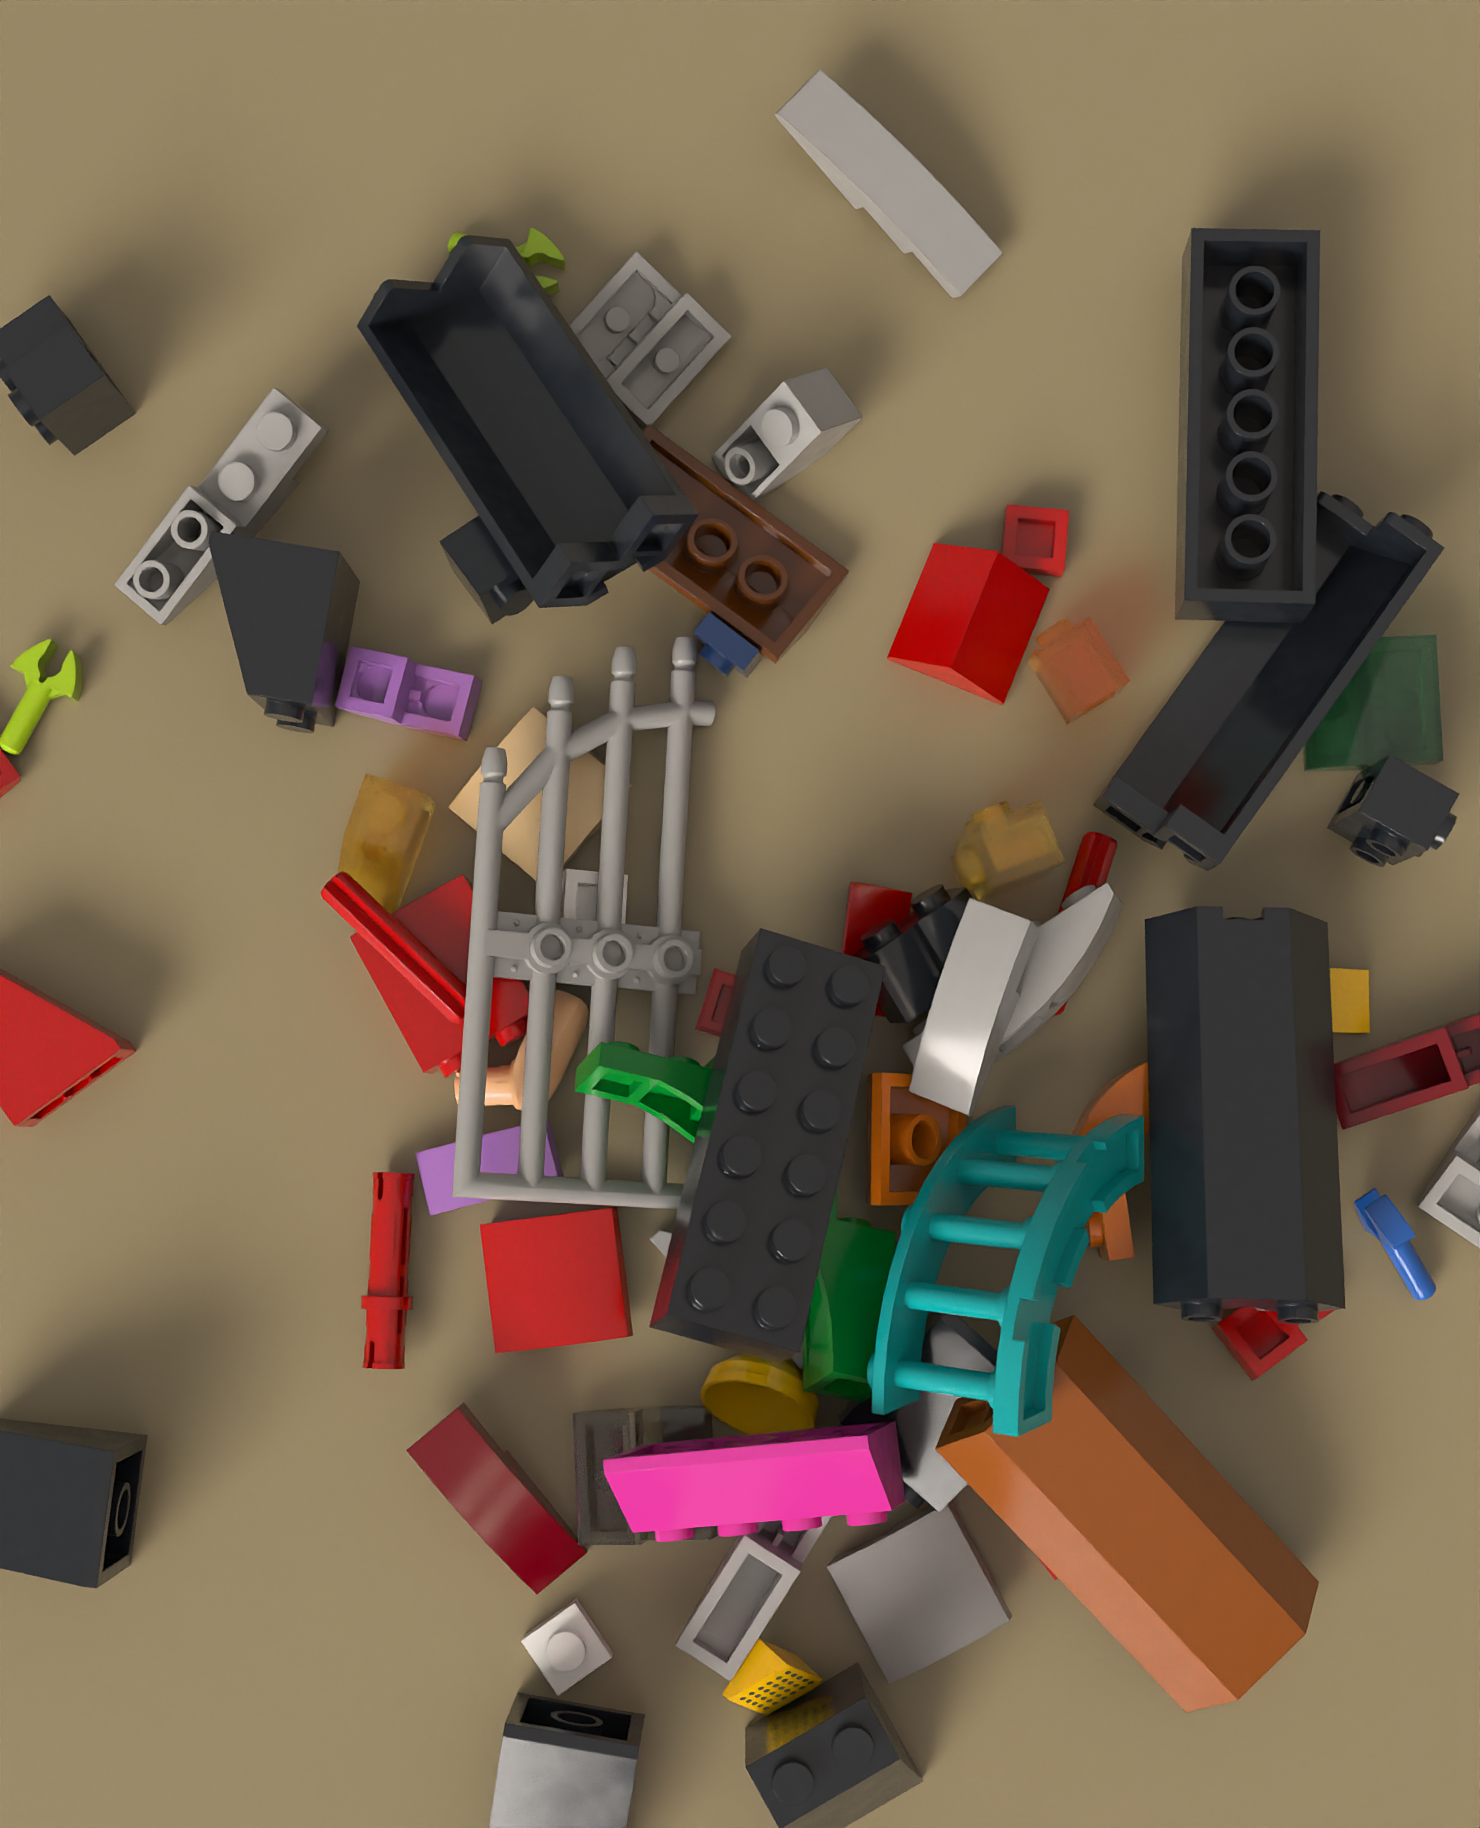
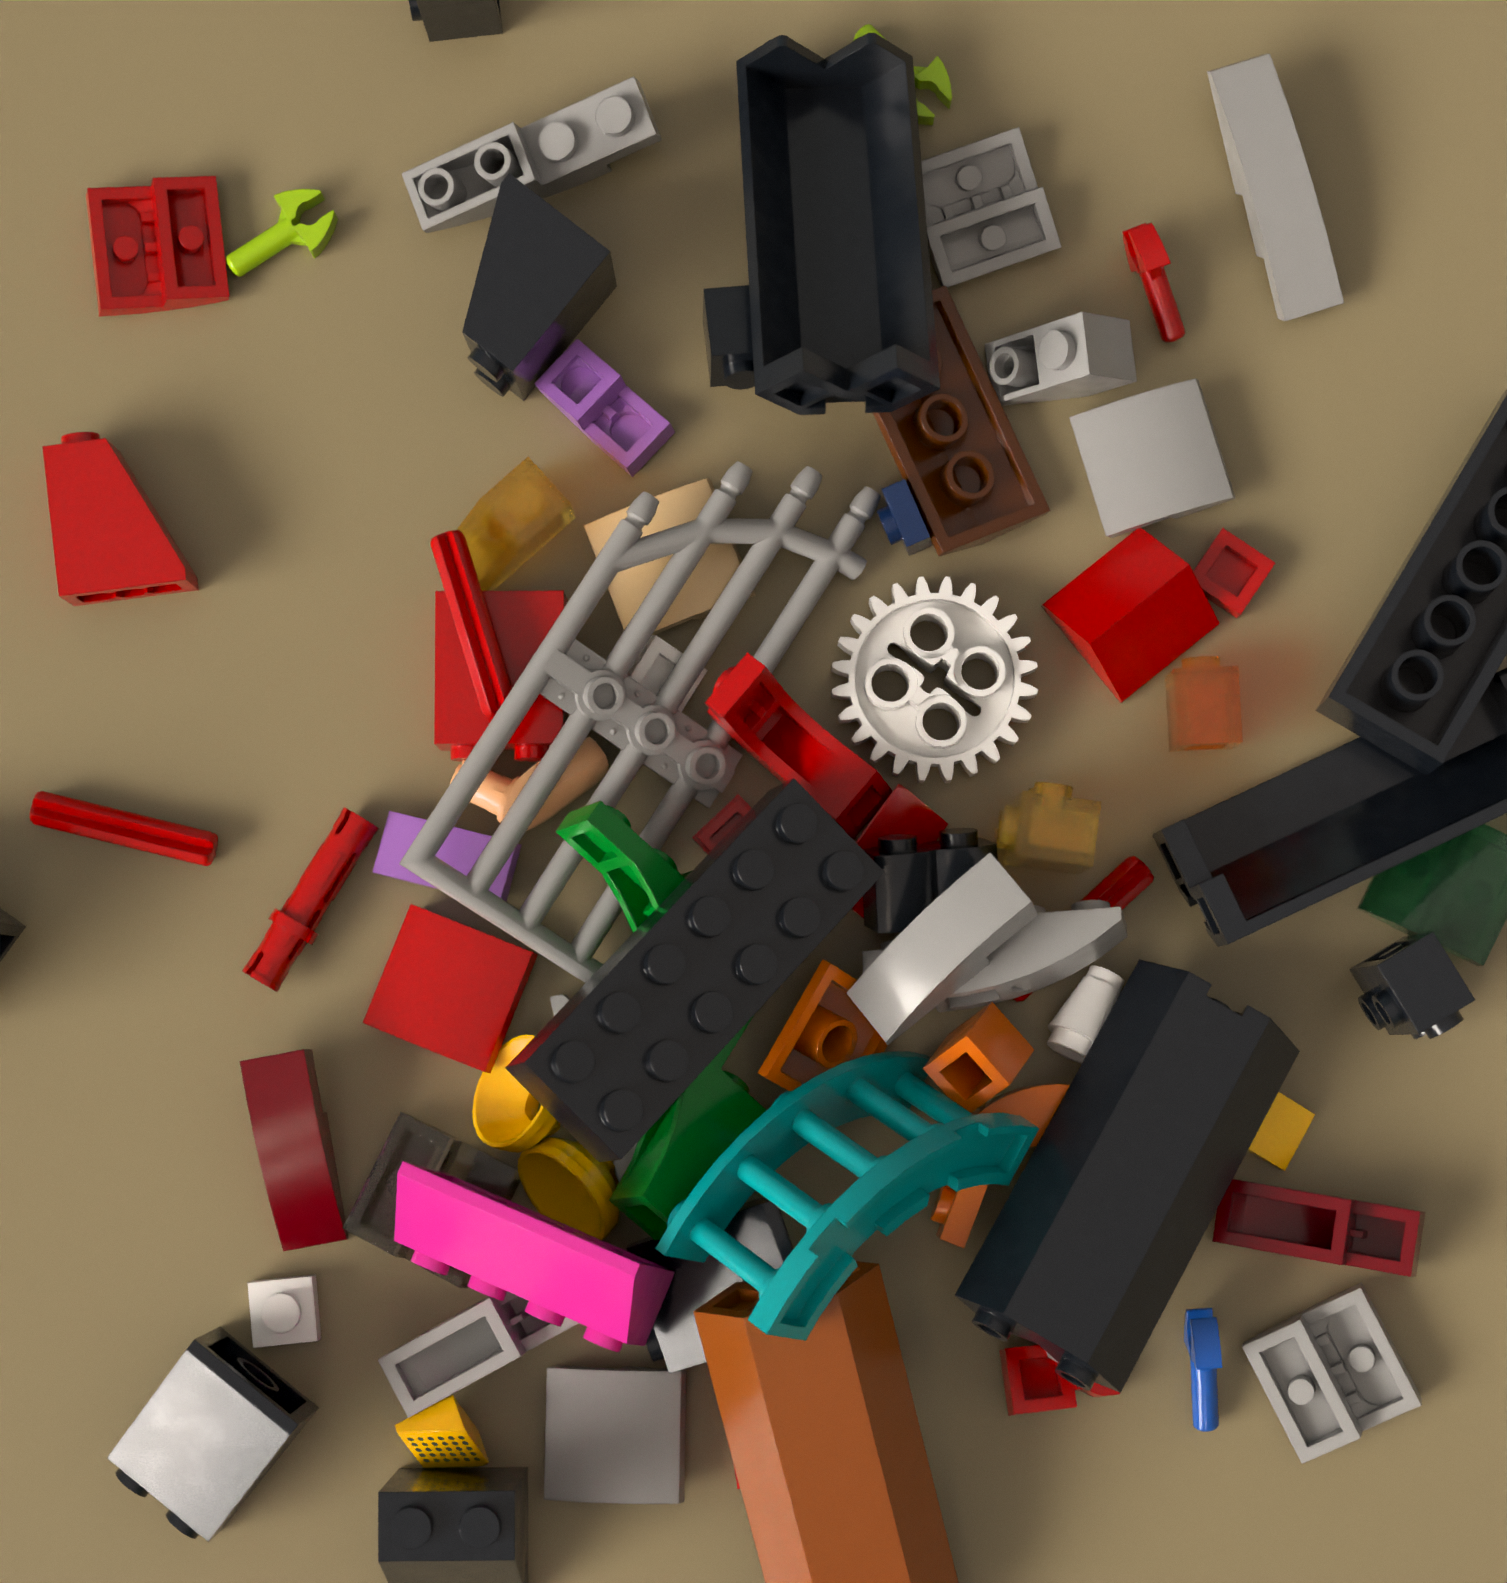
camera: 30 degrees right, 0 degrees up
(186, 1299) = (123, 828): none -> red axle
(664, 1361) = (505, 1111): none -> yellow piece
(742, 899) = (793, 745): none -> red arch
(812, 304) = (1147, 258): none -> red bar
(838, 717) = (969, 635): none -> white gear
(912, 476) = (1152, 457): none -> light grey slope
(1055, 1083) = (979, 1058): none -> orange brick
(1123, 993) = (1084, 1013): none -> white cone

